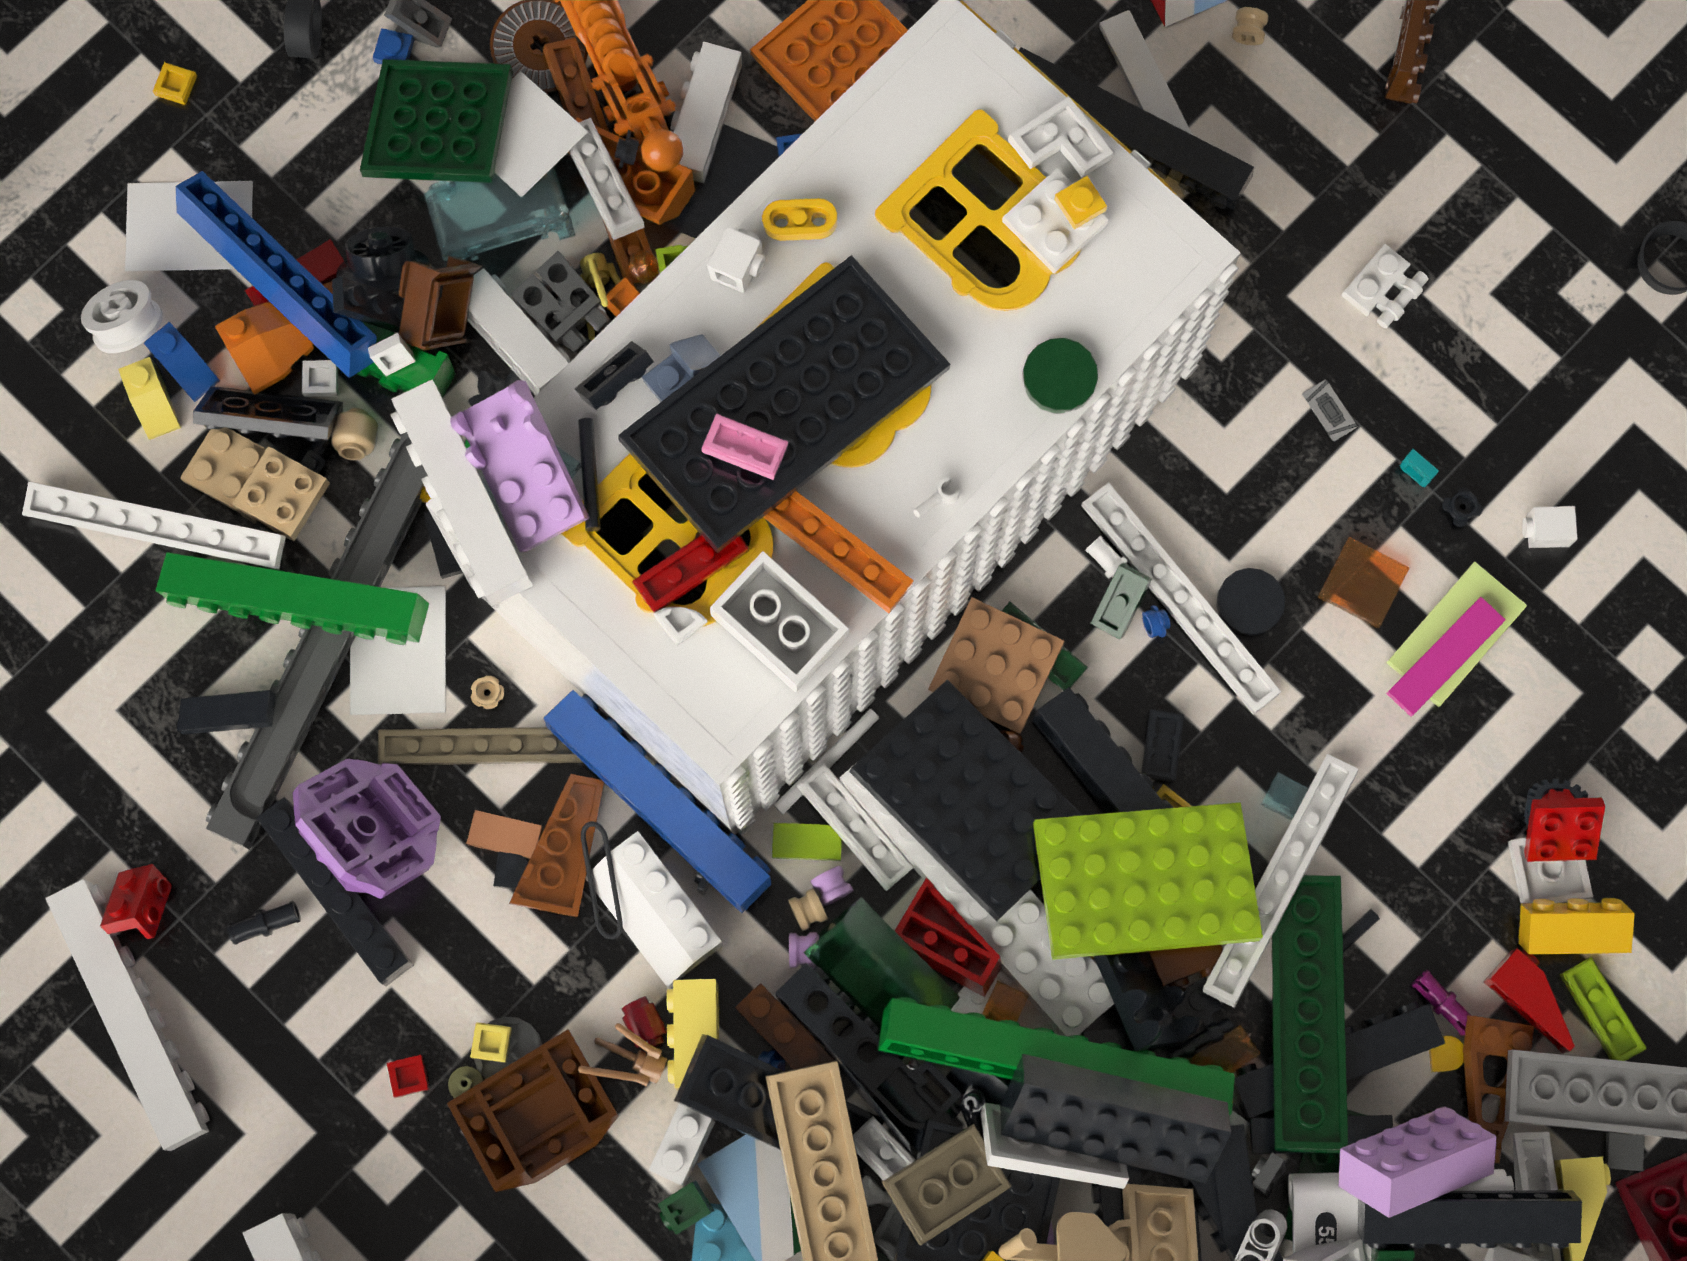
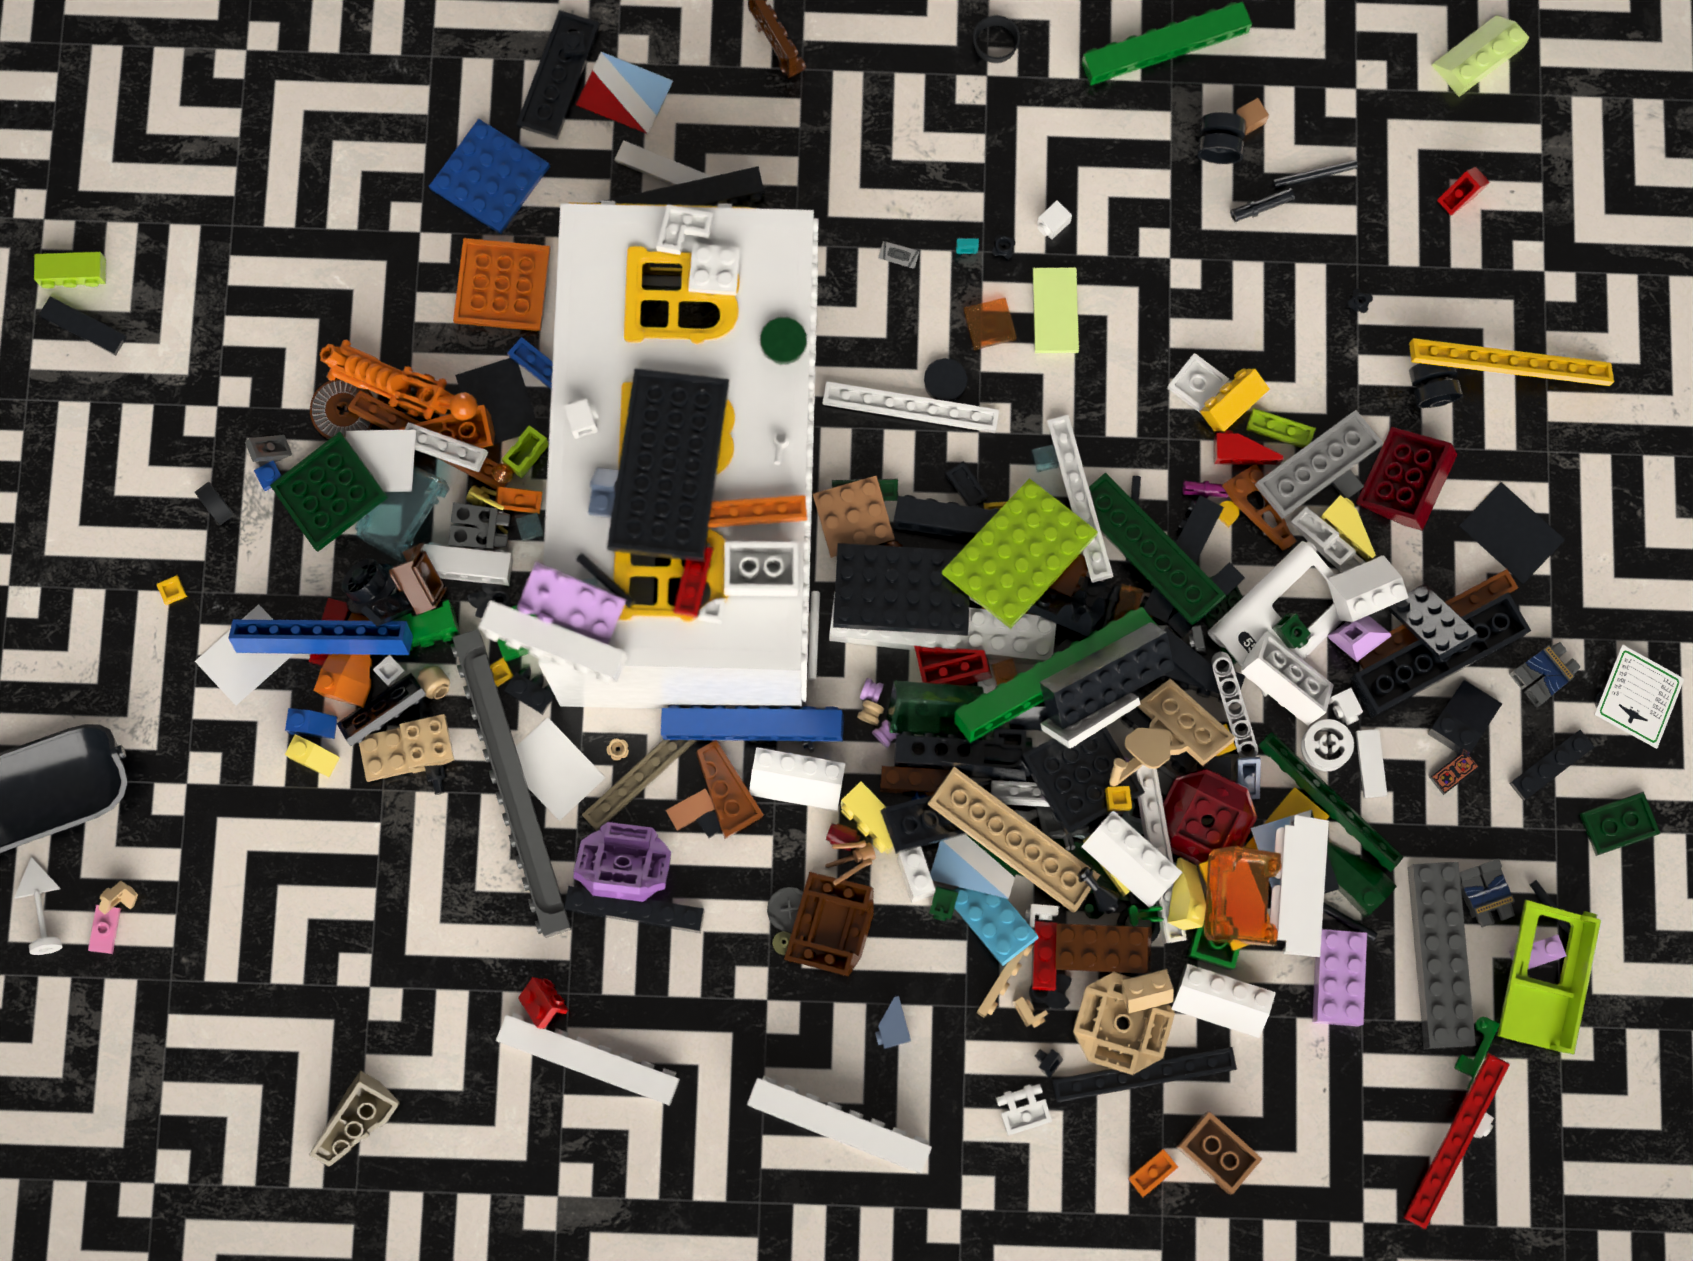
camera: 45 degrees left, 0 degrees up
(121, 316) = (253, 724): white wheel -> none
(154, 525) = (375, 815): white plate -> none
(226, 712) = (499, 872): black tile -> none
(263, 922) = (613, 956): black pin -> none
(293, 598) = (481, 787): green brick -> none
(391, 354) = (420, 624): white plate -> none
(408, 1076) = (752, 964): red plate -> none
(491, 1042) = (778, 911): light yellow tile -> none
(591, 882) = (765, 781): black piece -> none
(614, 375) = (574, 523): black plate -> none
(627, 149) = (443, 422): black plate -> none
(705, 105) = (455, 365): white brick -> none
(744, 446) = (672, 500): bright pink plate -> none
(800, 215) = (591, 371): yellow plate -> none
(805, 842) = (840, 681): lime tile -> none
(855, 826) = (856, 653): white tile -> none
(945, 1185) = (1058, 776): dark tan tile -> none
(971, 1107) = (1035, 732): black arm -> none
(1080, 202) = (720, 250): yellow plate -> none
(1106, 556) = (867, 419): white pin -> none
(1121, 601) = (885, 433): plate -> none
(1155, 622) = (909, 429): blue plate -> none
(1250, 26) = (690, 98): tan wheel -> none
(1376, 280) = (864, 171): white plate -> none
(1417, 1161) = (1260, 571): lavender brick -> none
(1445, 656) = (1060, 325): dark pink tile -> none
(1478, 1219) = (1306, 576): black brick -> none
(1562, 822) = (1184, 355): red plate -> none

